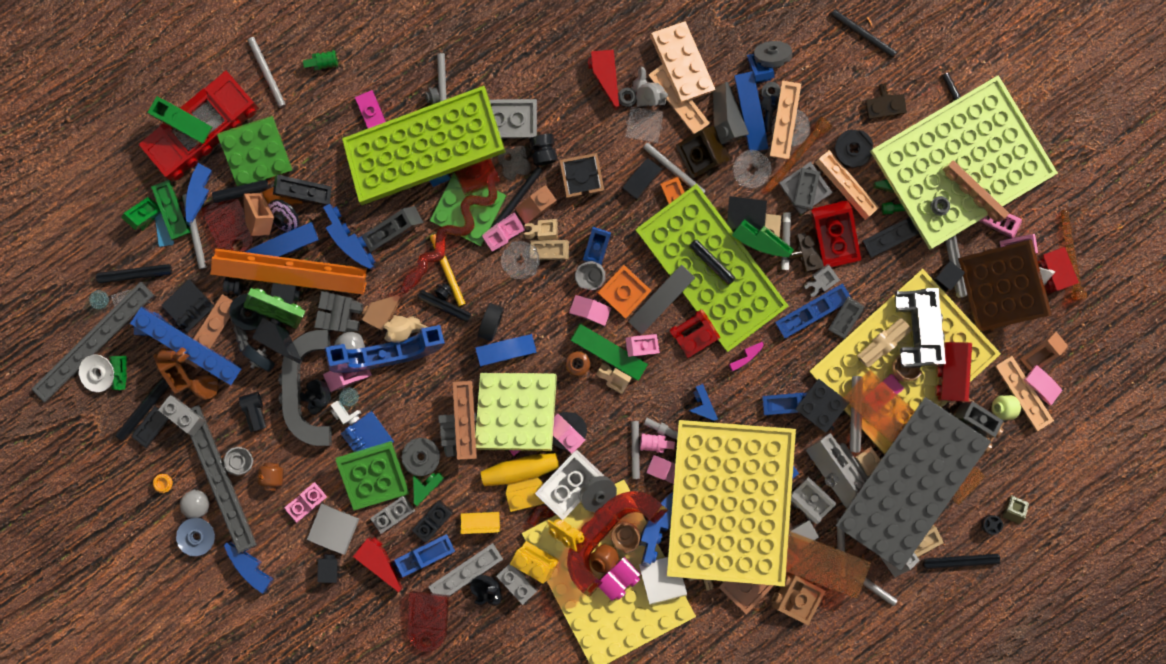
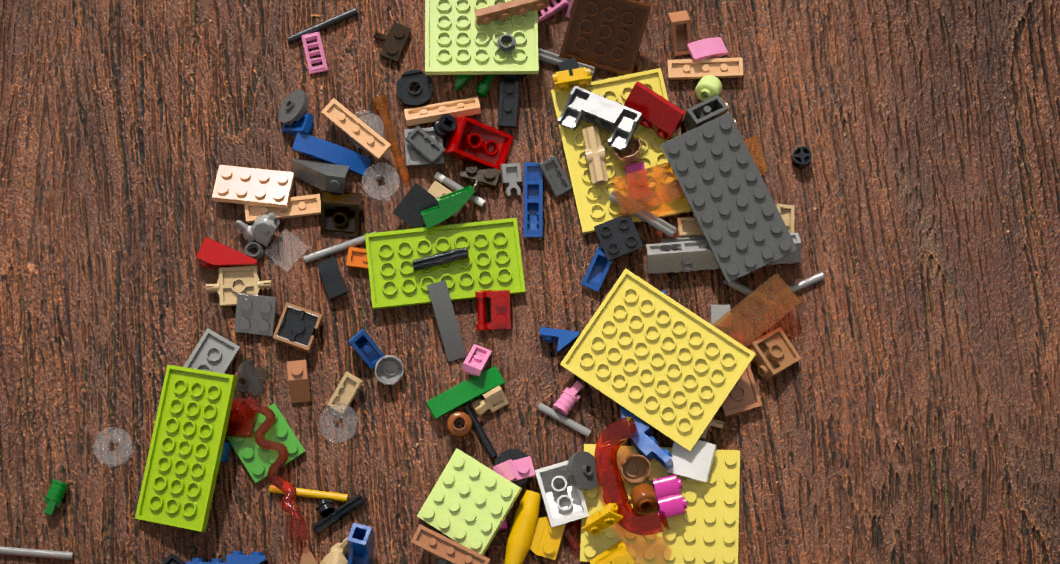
camera: 65 degrees left, 10 degrees down
(370, 109) = (124, 479): dark pink plate -> none
(391, 72) = (123, 452): none -> clear plate
(392, 228) = (242, 519): dark grey slope -> none
(432, 96) = (147, 417): dark grey plate -> none
(441, 76) = (135, 399): light grey bar -> none
(490, 322) = (377, 479): black tyre -> none
(503, 231) = (304, 424): bright pink slope -> none
(506, 350) = (410, 481): blue slope -> none
(519, 195) = (283, 396): black bar -> none
(543, 149) = (256, 347): black wheel -> none
(544, 230) = (325, 387): tan plate -> none
(572, 132) = (255, 314): none -> flat silver plate
(583, 384) = (480, 432): none -> black bar
(588, 103) = (237, 280): none -> tan plate
(590, 310) = (418, 388): bright pink slope -> none
(624, 291) = (420, 349): orange plate -> none
(661, 428) = (559, 386): light grey bar -> none
(662, 469) = (595, 405): bright pink slope -> none
(750, 353) = (538, 274): dark pink slope -> none
(769, 105) = (335, 134): black bar -> none
(775, 86) = (324, 133): dark grey plate -> none
(812, 500) = (695, 293): light grey bracket -> none
(829, 197) = (445, 130): none -> black wheel
(846, 30) = (312, 37): none -> bright pink slope
(947, 288) = (565, 81): none -> yellow hinge
(961, 561) = (818, 199): black axle -> none
(1016, 510) = (800, 131): olive slope -> none

